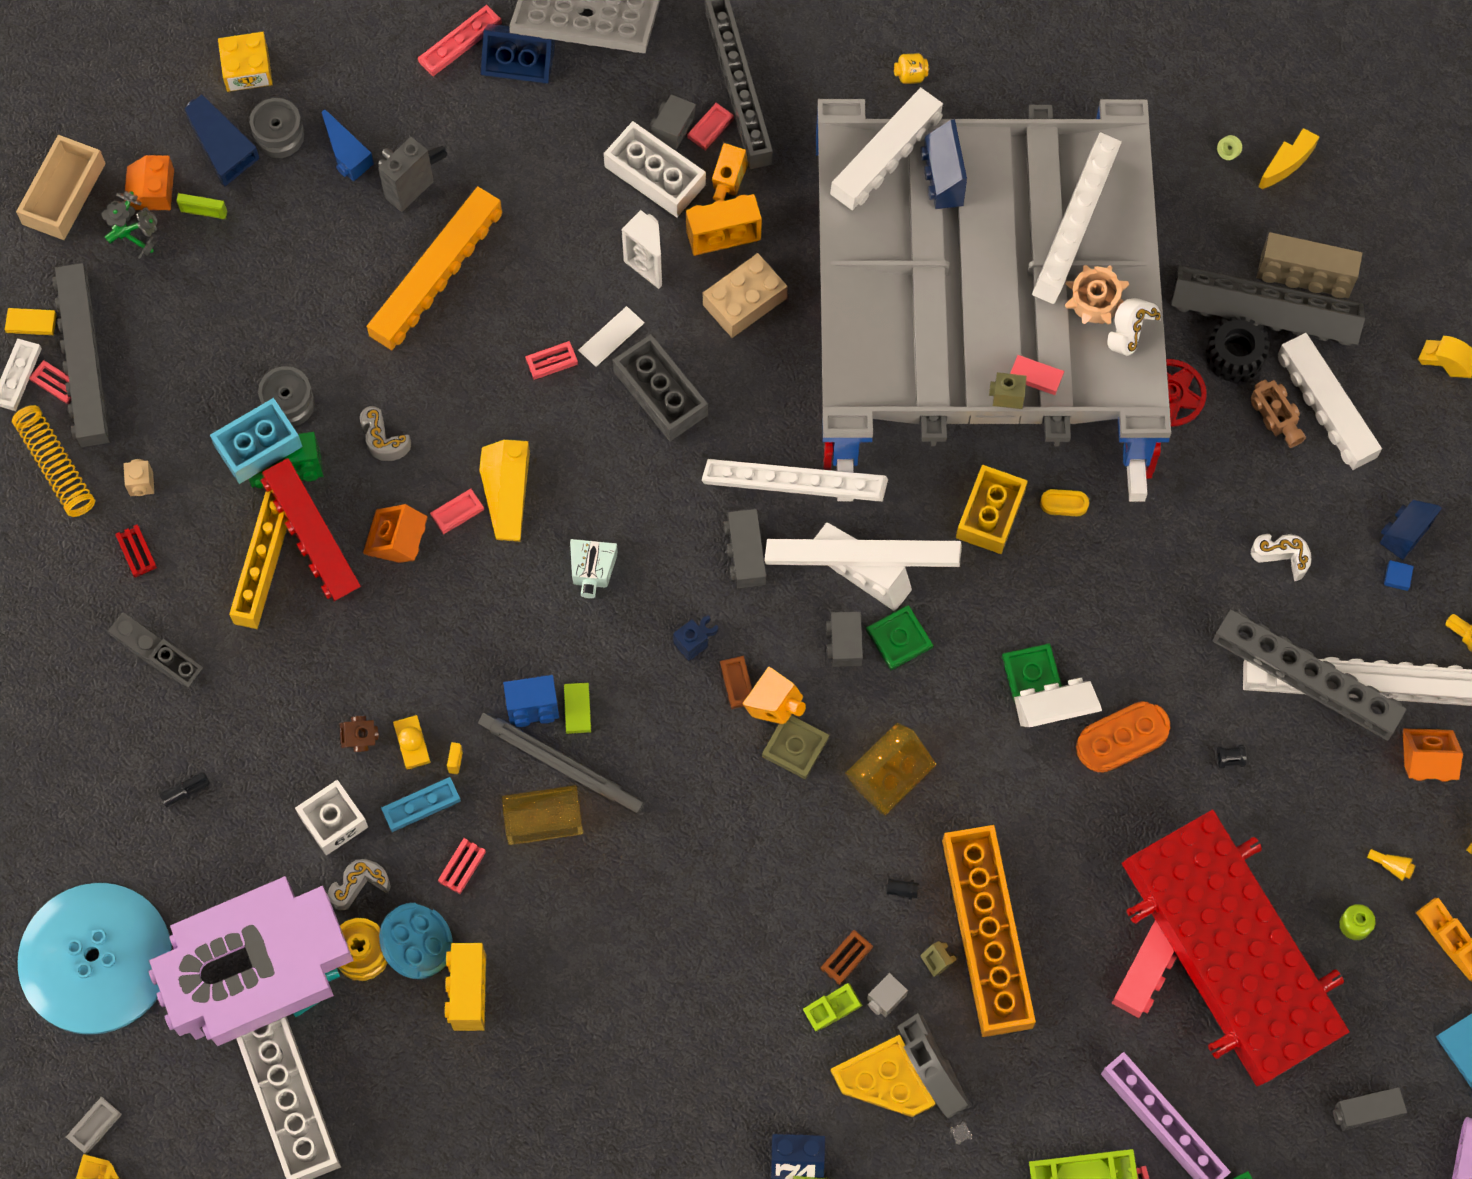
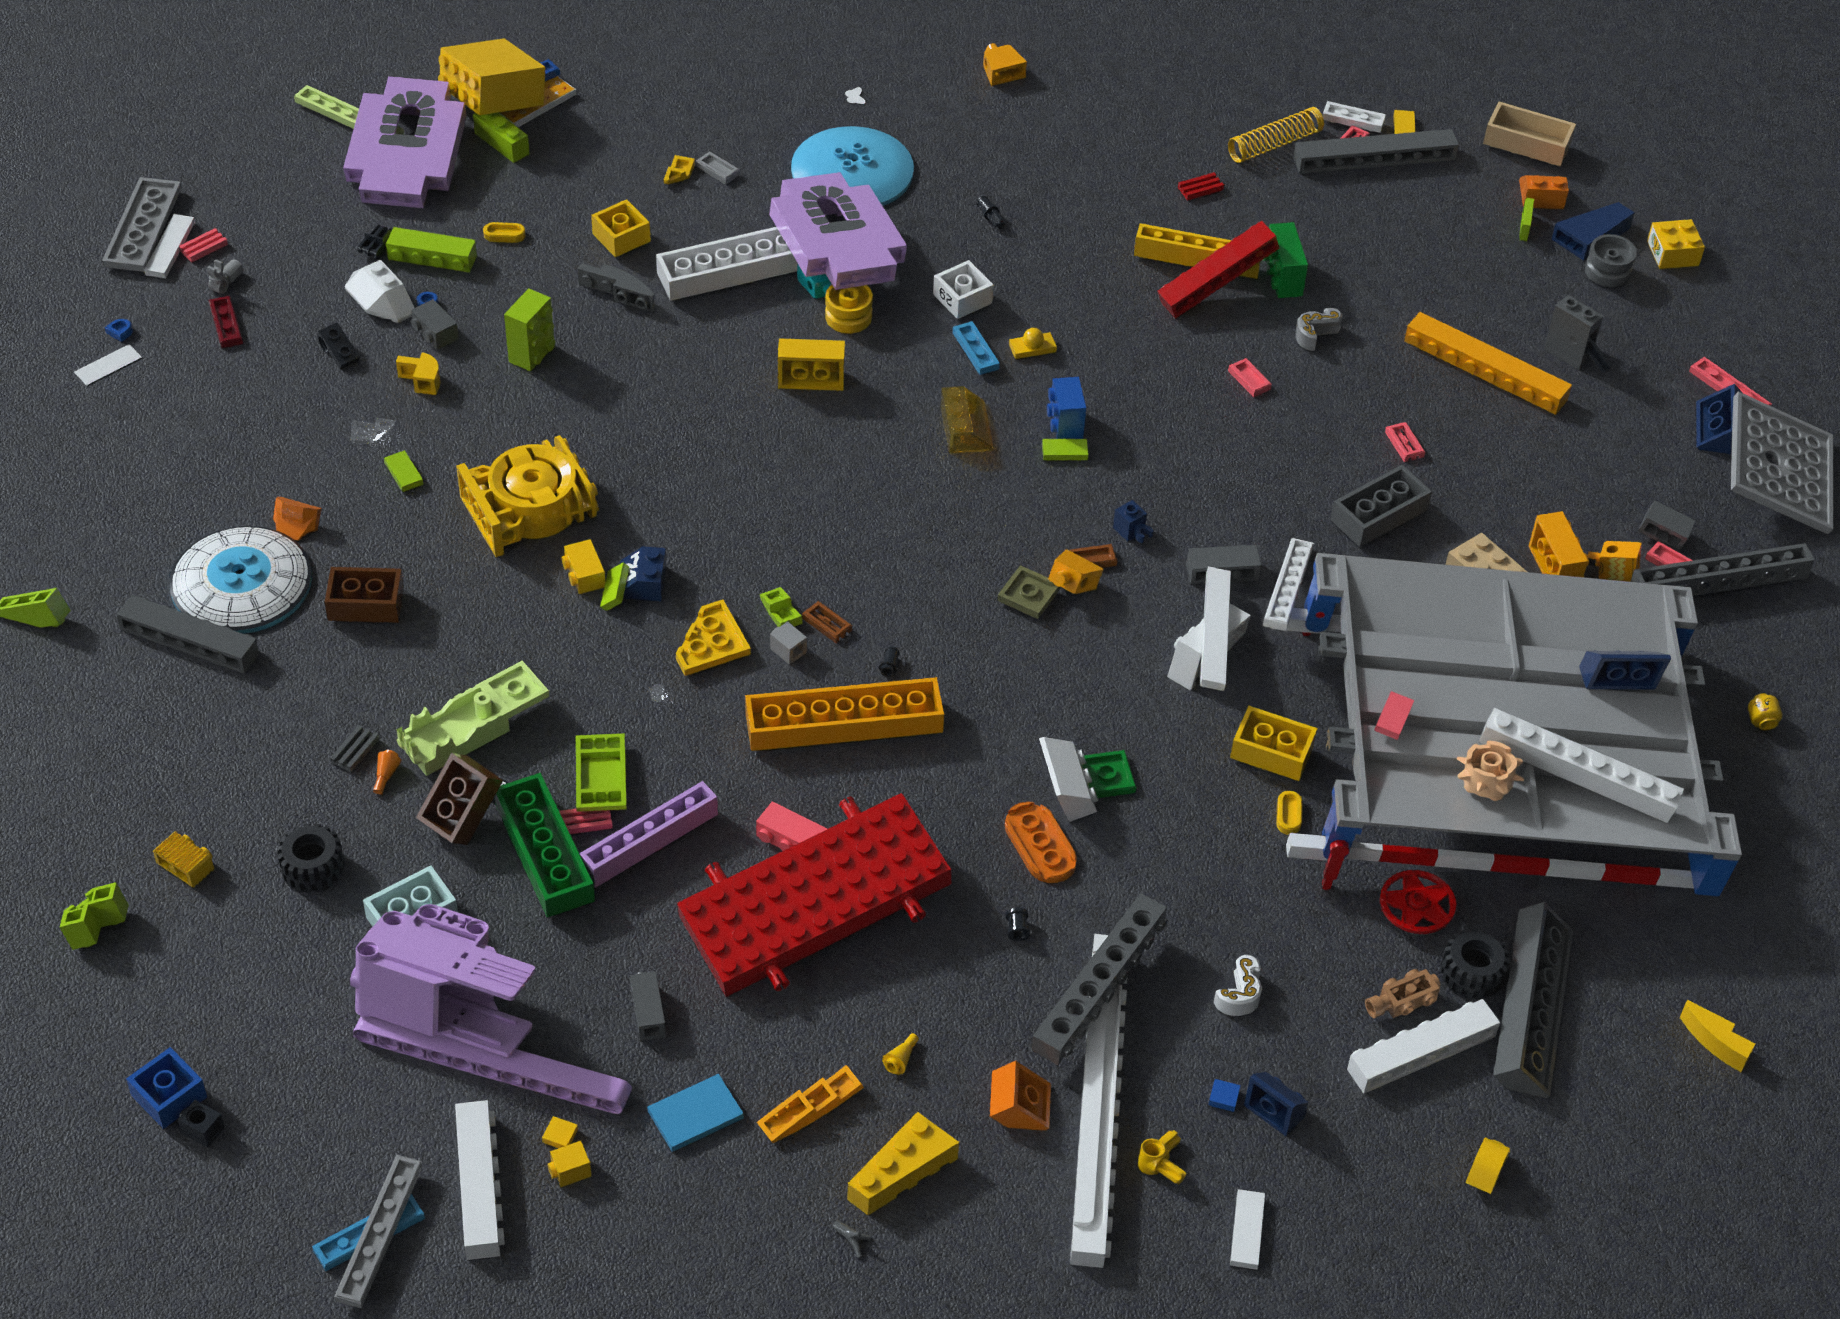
camera: 90 degrees right, 20 degrees down
(120, 212) = (1497, 168): dark grey plant -> none
(138, 478) = (1264, 182): tan brick -> none
(154, 650) = (1112, 193): dark grey slope -> none
(256, 440) = (1292, 219): medium azure brick -> none
(290, 391) = (1346, 265): dark grey wheel -> none
(349, 153) = (1608, 301): blue slope -> none
(350, 737) = (1037, 306): reddish brown brick -> none
(354, 879) = (909, 306): light grey animal -> none
(395, 533) = (1222, 335): orange slope -> none
(415, 941) = (861, 331): dark azure tile -> none
(455, 758) = (1016, 367): yellow tile -> none
(472, 848) = (923, 371): coral tile -> none
(504, 481) = (1279, 409): yellow wedge -> none
(561, 762) = (1003, 448): dark grey piece -> none
(592, 564) = (1200, 458): light aqua torso -> none
(611, 336) = (1440, 488): white sticker -> none
(642, 247) = (1520, 489): white slope -> none
(654, 169) = (1612, 508): white brick -> none
(845, 639) = (1134, 631): dark grey brick -> none
(886, 149) = (1637, 624): white brick -> none
(891, 768) = (1005, 657): clear yellow slope -> none
(899, 637) = (1139, 676): green tile -> none
(932, 1067) = (710, 668): dark grey slope -> none
(937, 958) = (824, 679): olive tile -> none
(1008, 390) = (1373, 678): olive brick -> none
(1129, 323) = (1464, 785): white animal -> none
(1229, 147) = (1723, 983): yellowish green tile -> none
(1309, 265) = (1581, 1033): dark tan piece -> none
(1357, 922) = (838, 1010): lime head -> none

